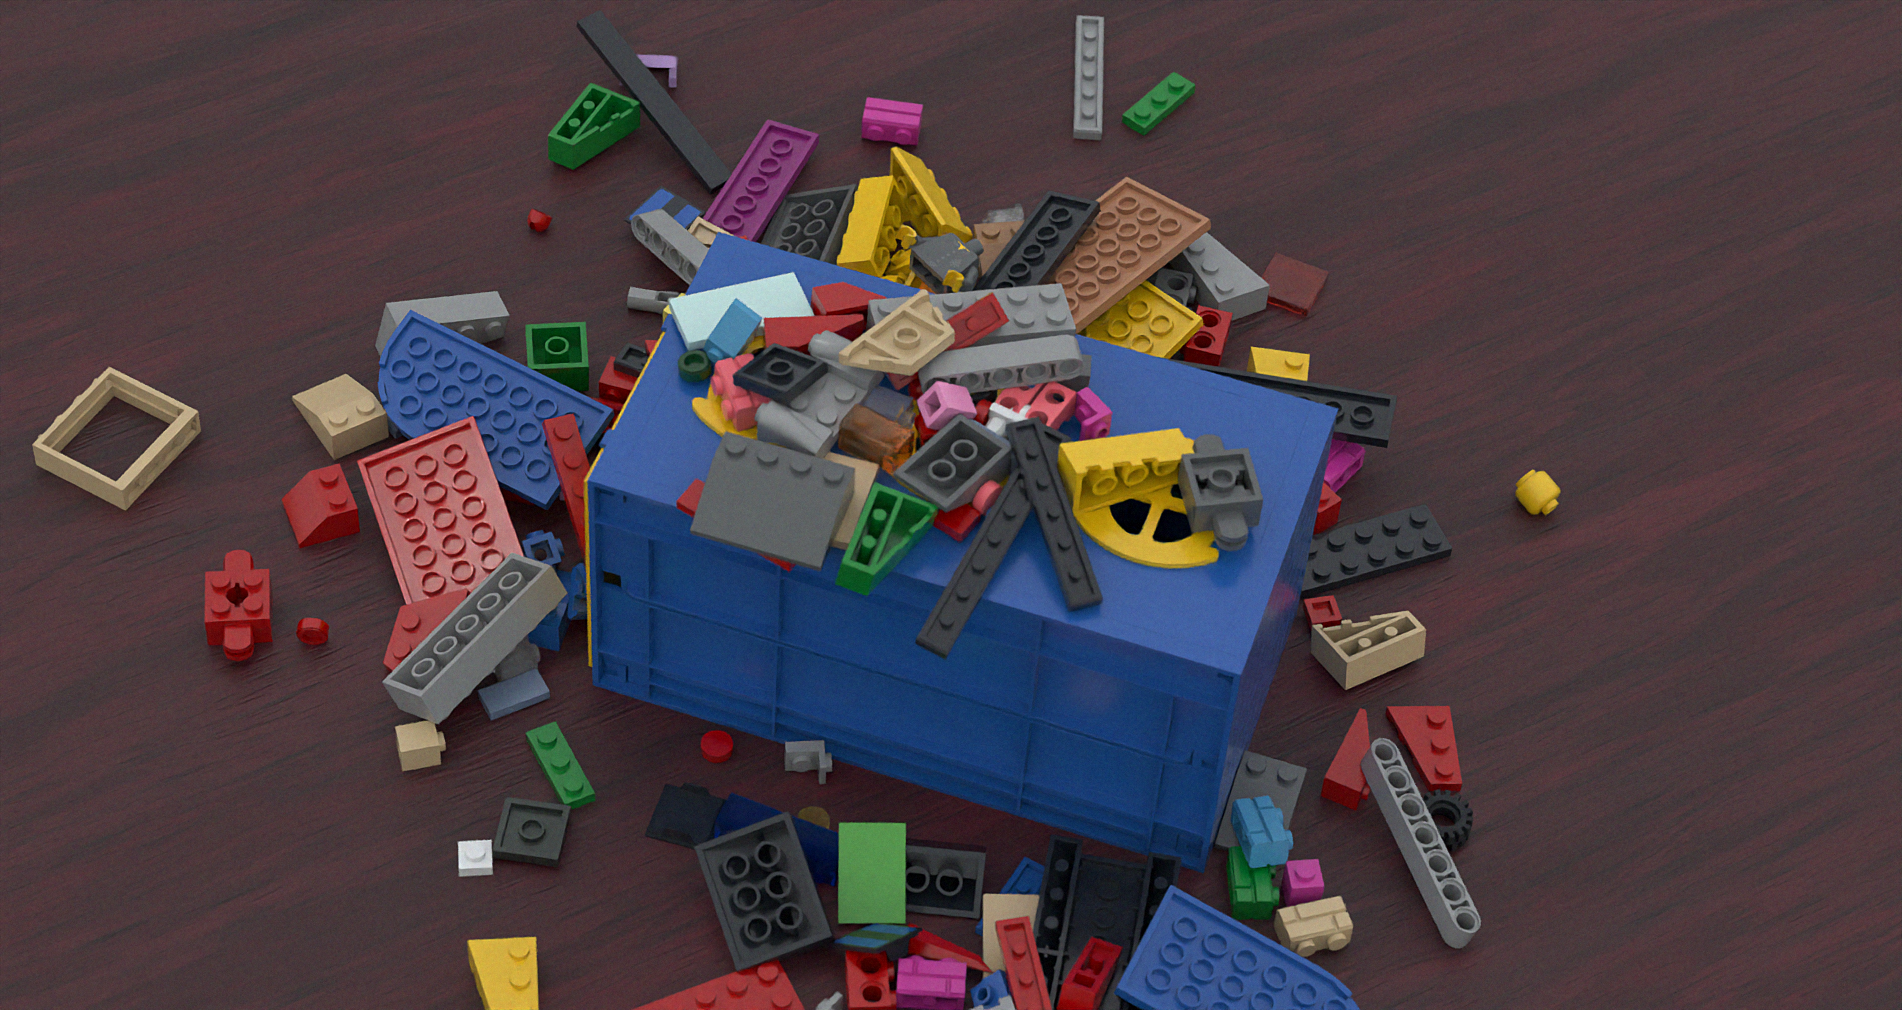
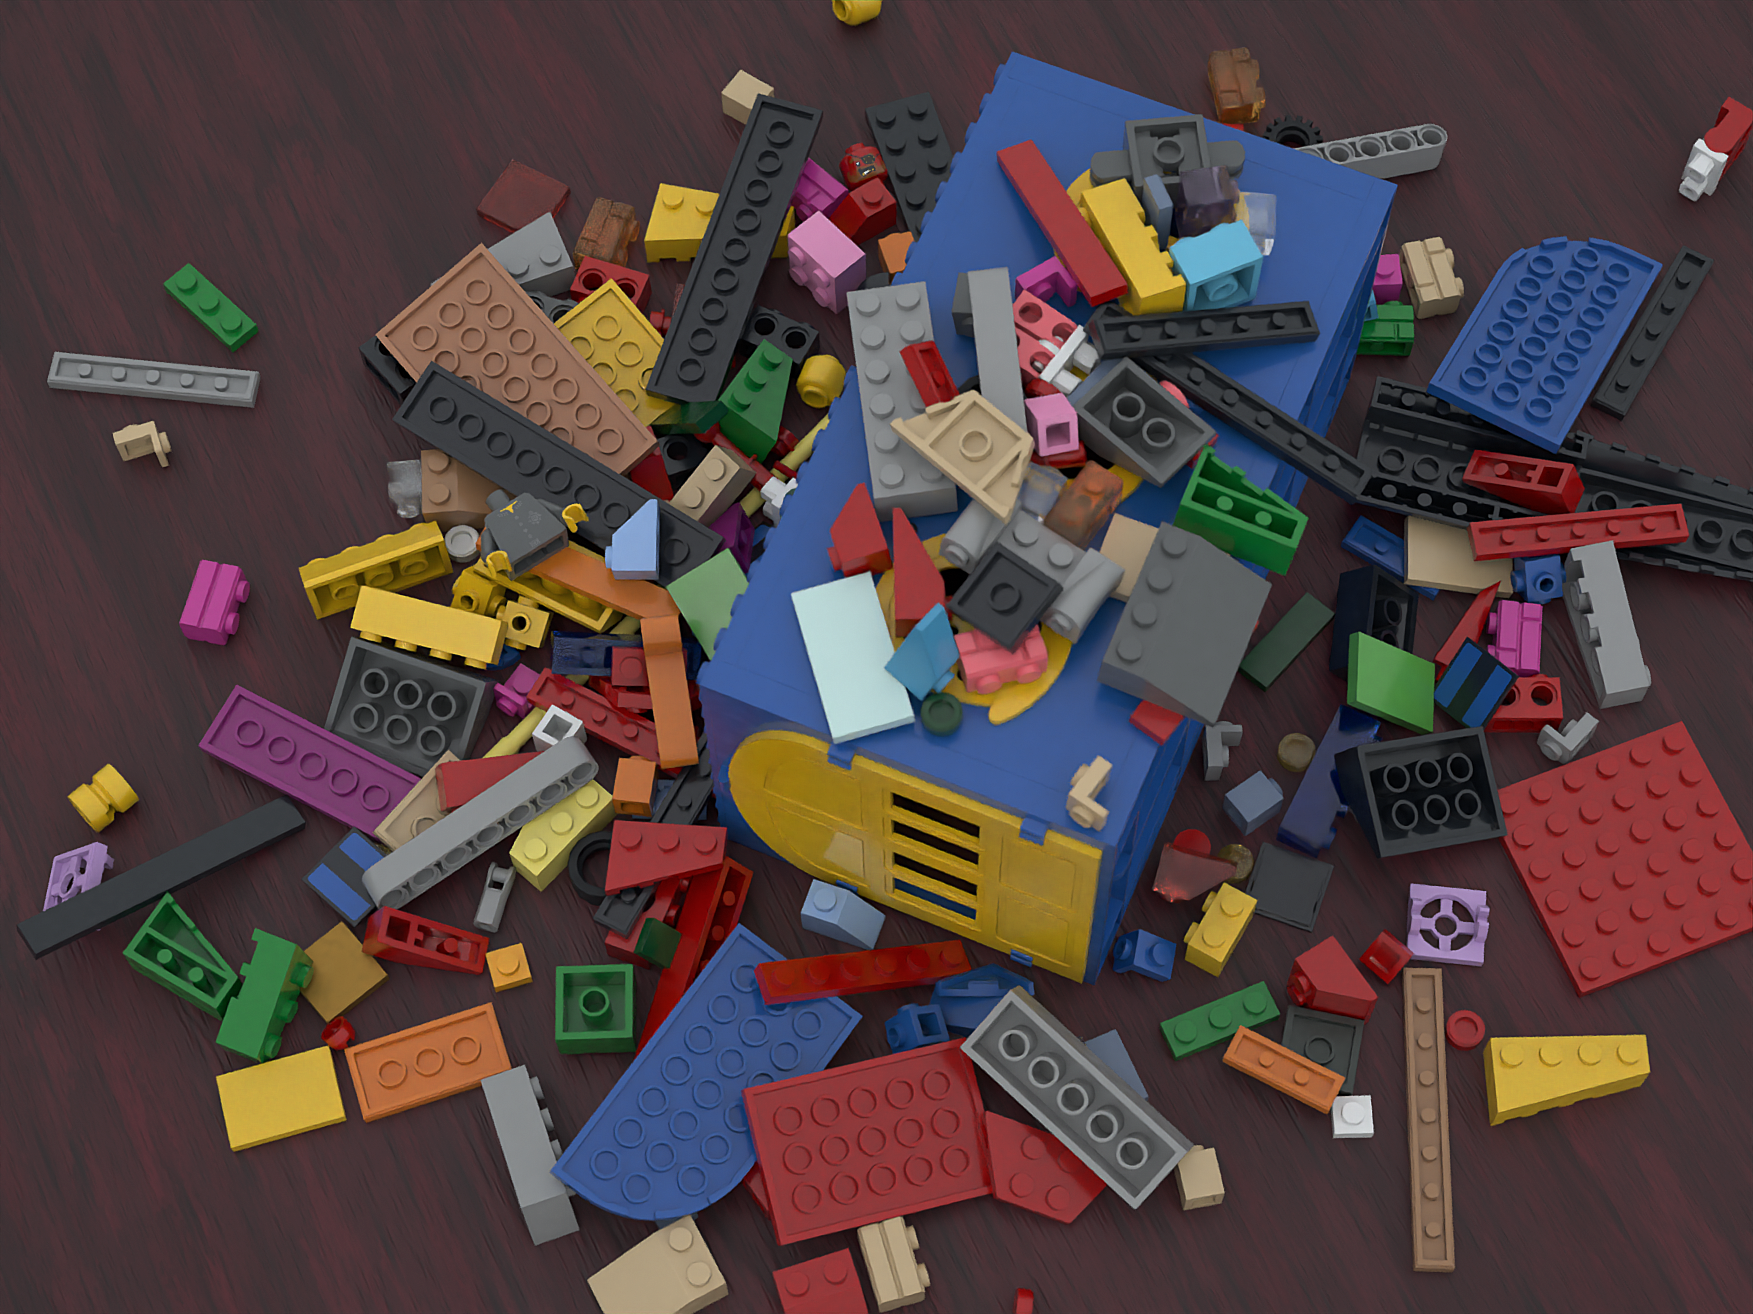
camera: 80 degrees left, 15 degrees up
(350, 548) = (892, 1264): none -> tan brick
(474, 913) = (1427, 1120): none -> medium nougat tile
(489, 194) = (281, 1098): none -> yellow tile
(510, 798) = (1283, 1069): none -> orange tile
(519, 274) = (427, 1062): none -> orange tile
(554, 942) = (1464, 1030): none -> red tile
(564, 169) = (266, 998): none -> green wedge
(587, 826) = (1330, 983): none -> red slope
(589, 217) = (341, 973): none -> pearl gold tile
(597, 315) = (508, 967): none -> light orange plate
(609, 384) = (657, 943): none -> dark green tile
(612, 259) = (423, 942): none -> red slope
(615, 711) = (1144, 954): none -> blue bracket
(618, 879) = (1386, 956): none -> red plate
(626, 448) = (1087, 784): none -> tan bracket
(638, 758) = (1220, 929): none -> yellow brick
(652, 948) = (1473, 900): none -> lavender piece
(690, 731) = (1188, 872): none -> clear red slope
(705, 775) = (1243, 856): none -> clear yellow tile
(722, 73) = (103, 798): none -> yellow wheel
(758, 782) = (1253, 802): none -> sand blue brick
(918, 813) = (1286, 642): none -> dark green tile
(1027, 72) = (142, 440): none -> tan bracket
(1109, 514) = (1218, 267): none -> medium azure brick
(1163, 477) = (1157, 208): none -> sand blue tile
(1171, 555) = (1259, 217): none -> clear brick
(1175, 509) = (1205, 200): none -> brick
(1182, 413) = (1062, 223): none -> red tile
(1258, 330) = (607, 233): none -> clear orange brick
(1359, 501) = (862, 165): none -> red head
(1416, 421) = (741, 94): none -> tan brick
(1502, 774) = (1235, 86): none -> clear orange brick

